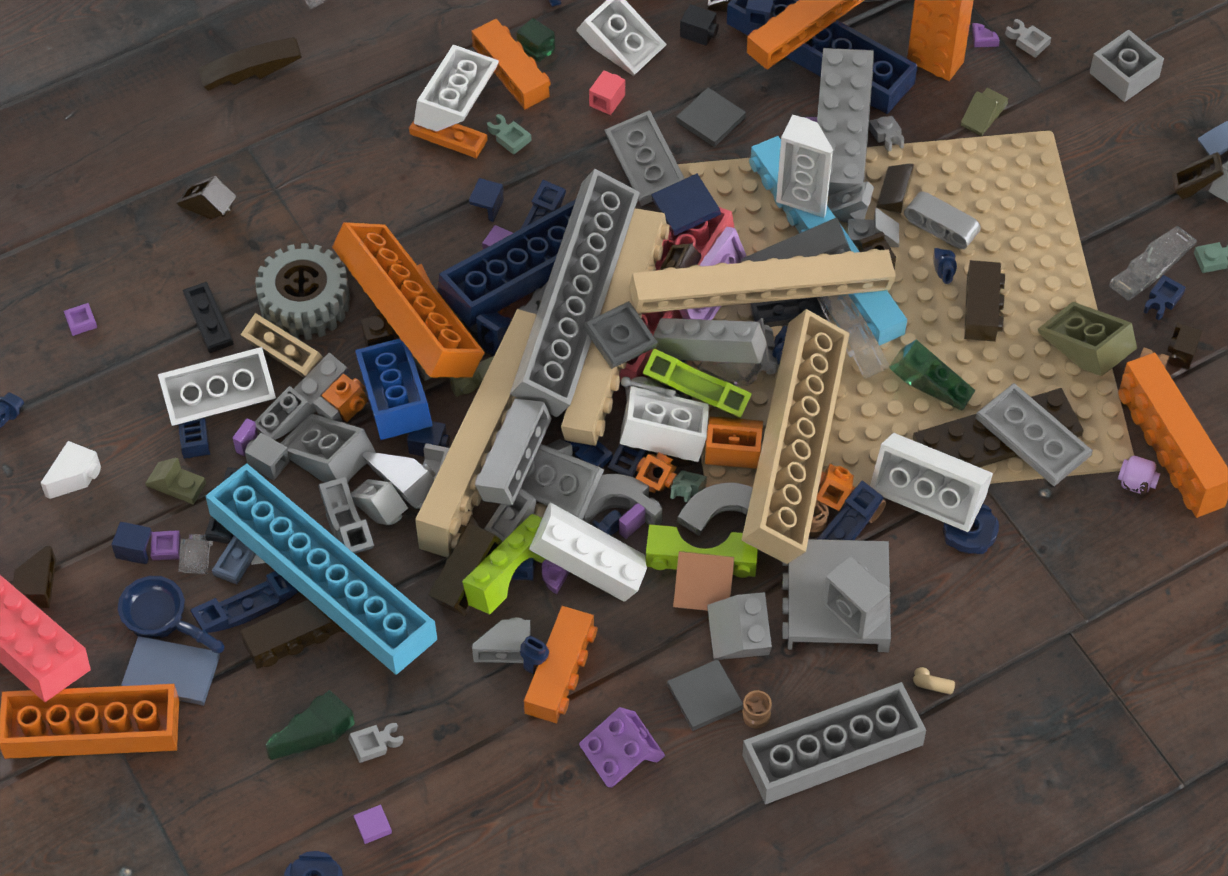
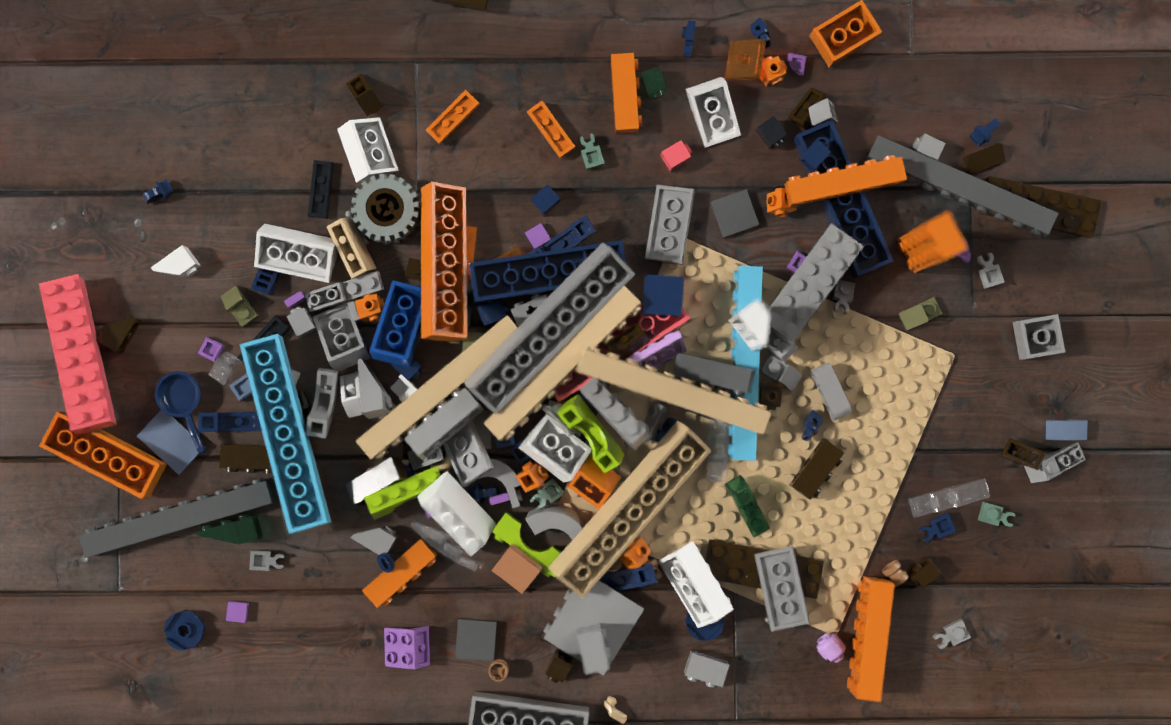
camera: 30 degrees right, 30 degrees up
(80, 319) = (239, 145): medium lavender tile -> none
(131, 542) = (188, 339): dark blue panel -> none
(226, 752) = (177, 518): none -> dark grey brick
(236, 246) = (367, 148): none -> white slope
(325, 174) = (452, 117): none -> orange plate
(453, 88) = (571, 102): white slope -> none
(604, 607) = (438, 540): none -> clear slope
(620, 335) = (556, 381): dark grey tile -> none
(739, 627) = (520, 612): light grey slope -> none
(754, 78) = (778, 203): none -> orange brick
(829, 659) = (558, 667): none -> dark brown slope
(895, 187) = (818, 345): dark brown slope -> none
(1010, 574) = (706, 668): none -> light grey brick
(1090, 337) = (866, 534): olive slope -> none

